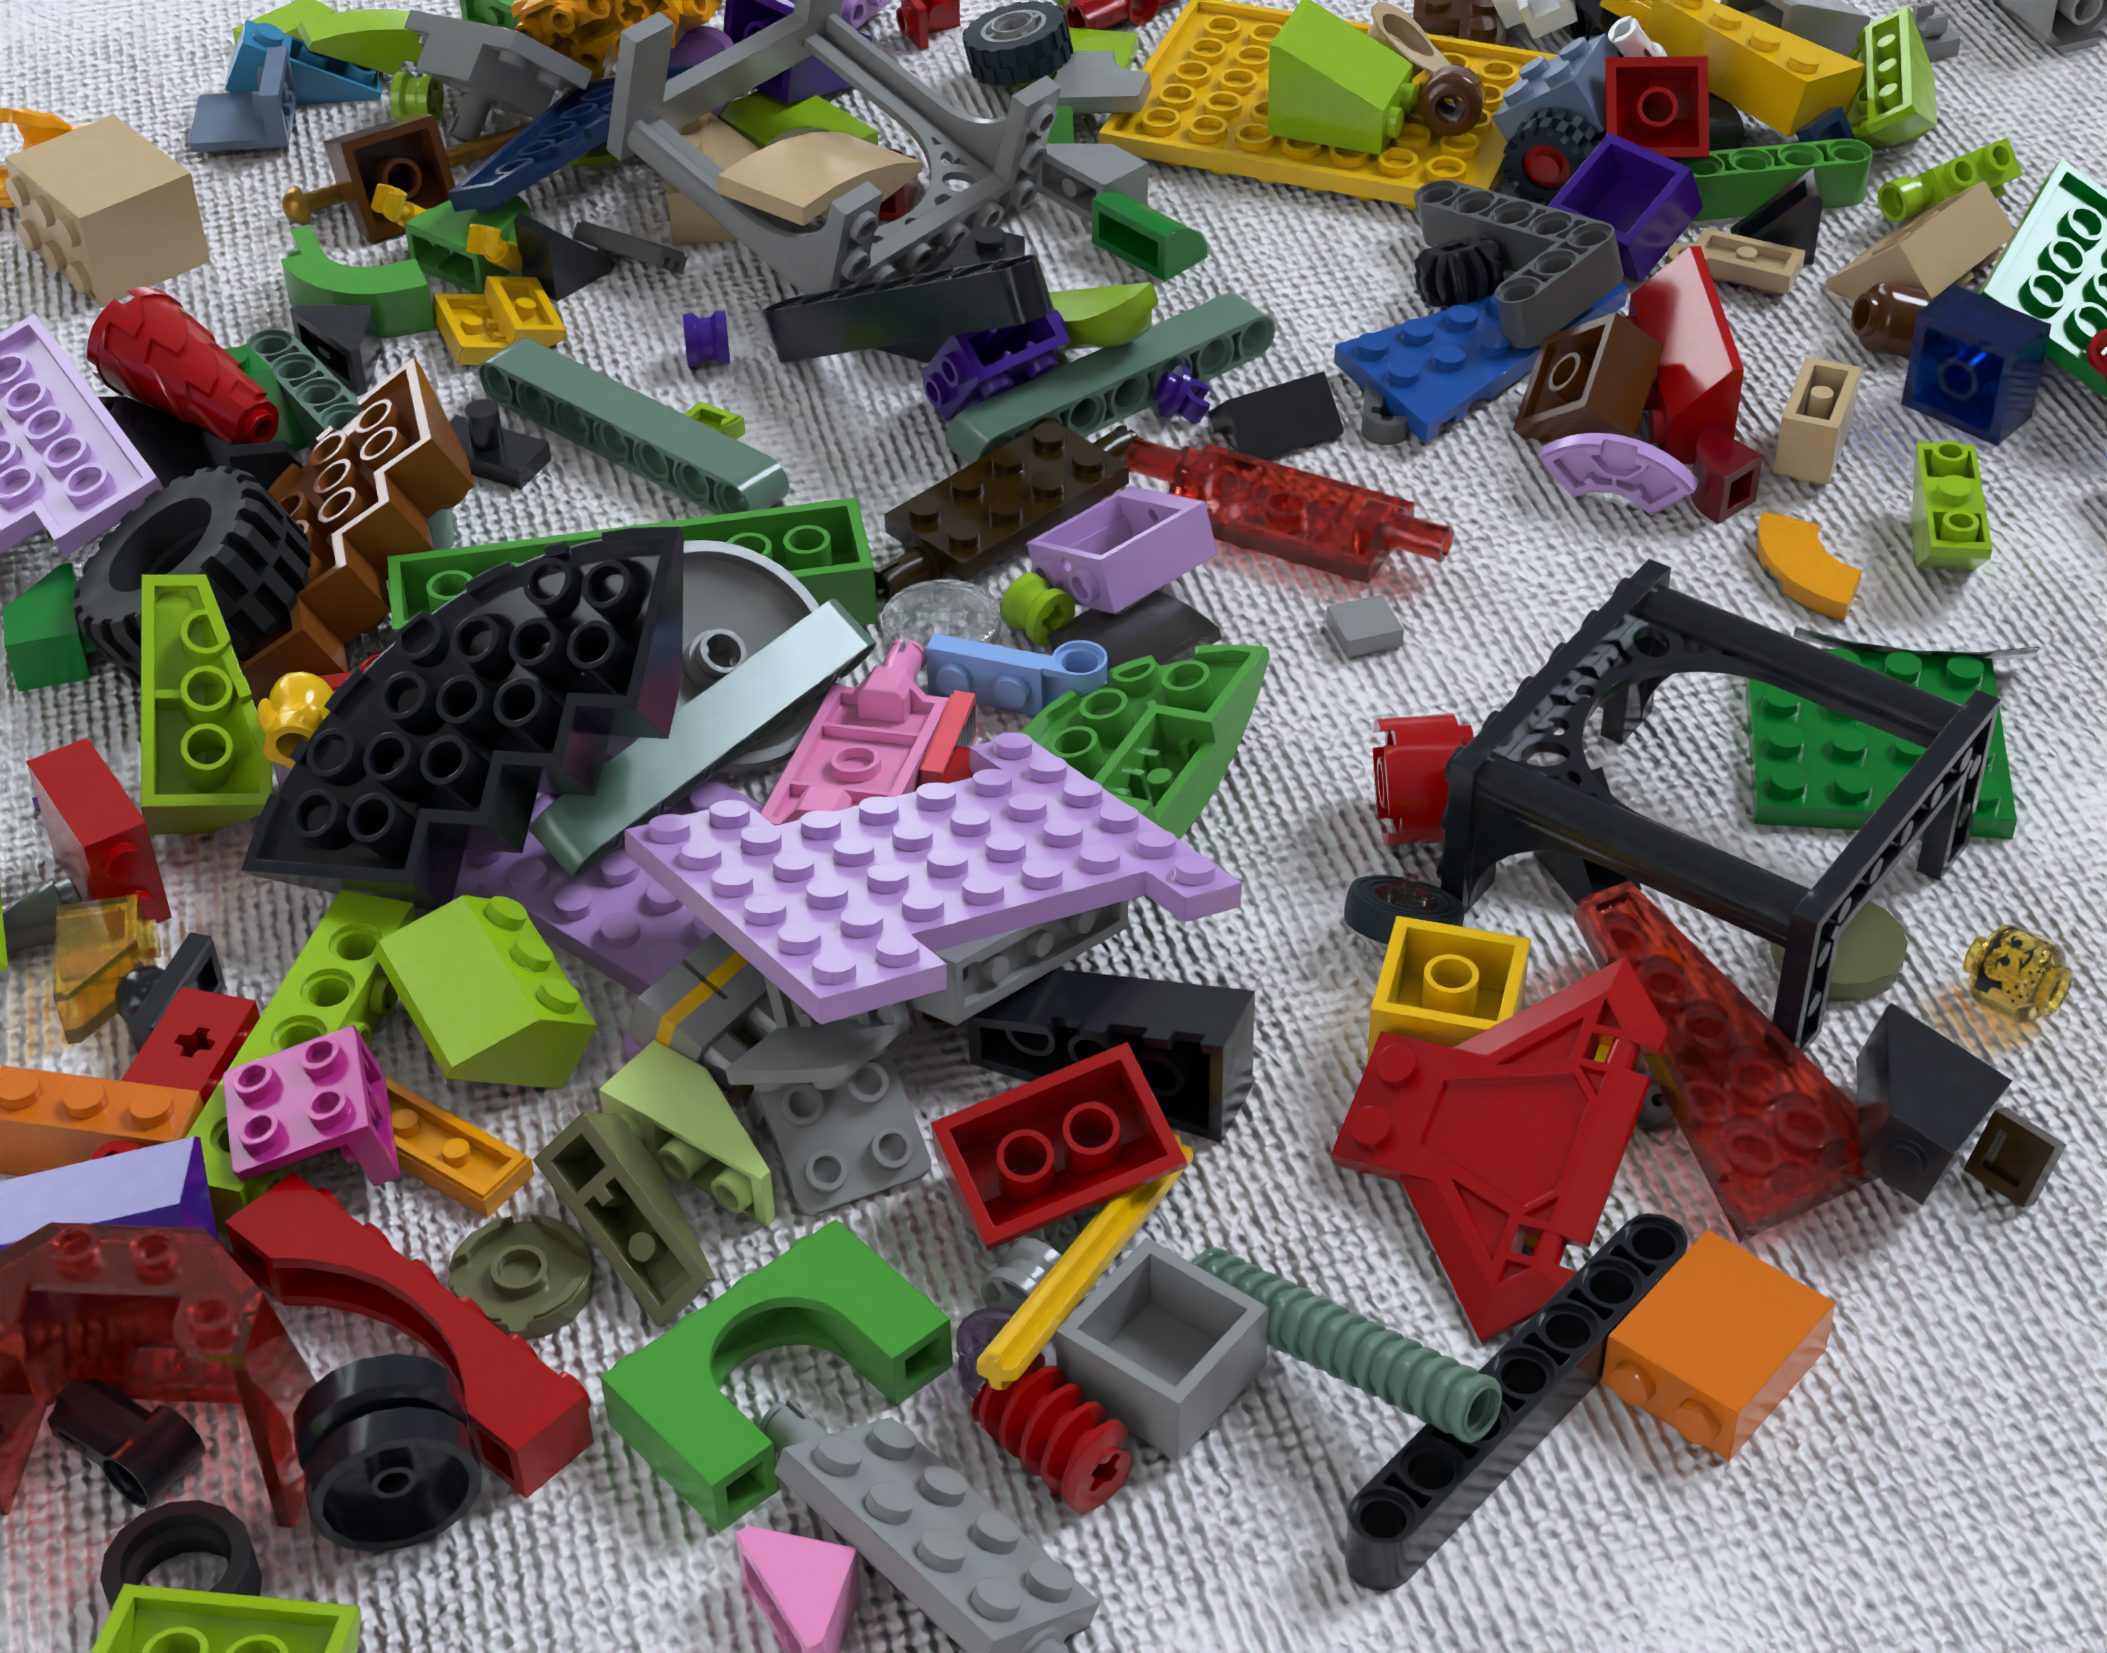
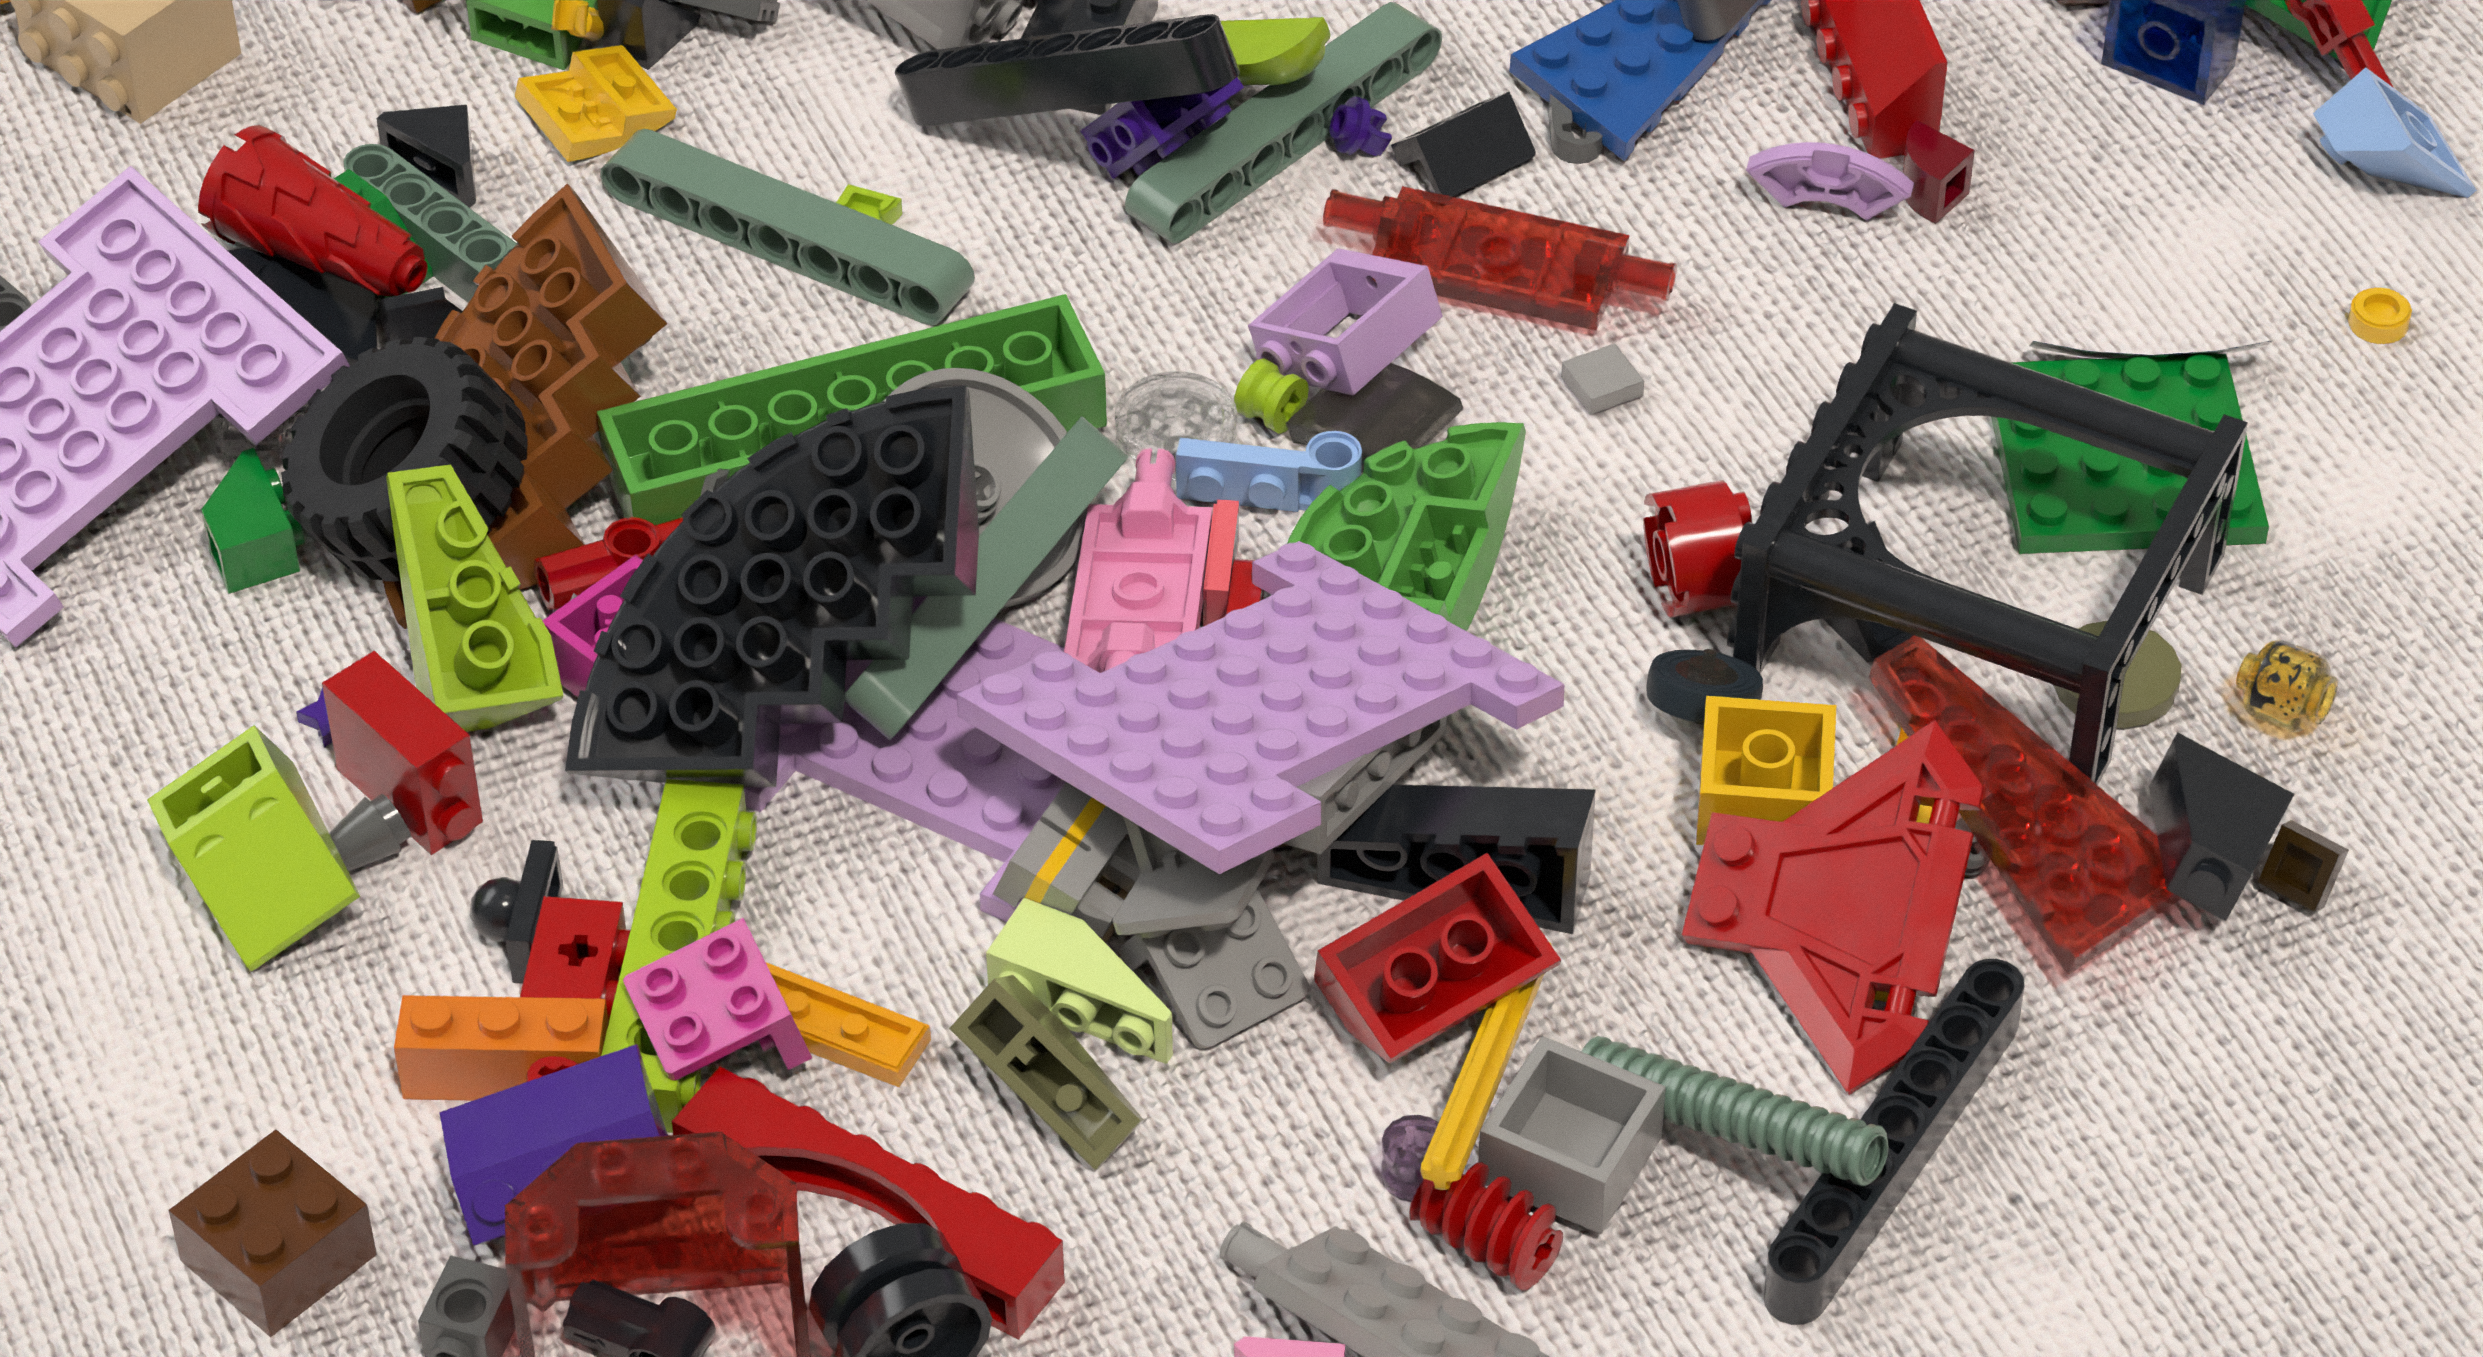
camera: 10 degrees left, 5 degrees up
(92, 953) = (439, 871): clear yellow slope -> none
(292, 713) = (579, 605): yellow animal -> none
(394, 289) = (390, 80): bright green arch -> none
(488, 994) = (848, 867): lime slope -> none
(495, 451) = (662, 266): black tile -> none
(524, 1274) = (958, 1132): olive tile -> none
(706, 339) = (836, 107): dark purple wheel -> none
(817, 1294) = (1240, 1122): bright green arch -> none
(1001, 504) = (1207, 275): dark brown plate -> none
(1024, 1269) = (1427, 1085): light grey wheel -> none
(1590, 381) = (1785, 81): reddish brown slope -> none
(1717, 1344) = (2061, 1070): orange brick -> none
(1804, 567) = (2021, 259): light orange tile -> none
(1817, 420) = (2022, 100): tan brick -> none
(1948, 508) = (2166, 189): lime slope -> none

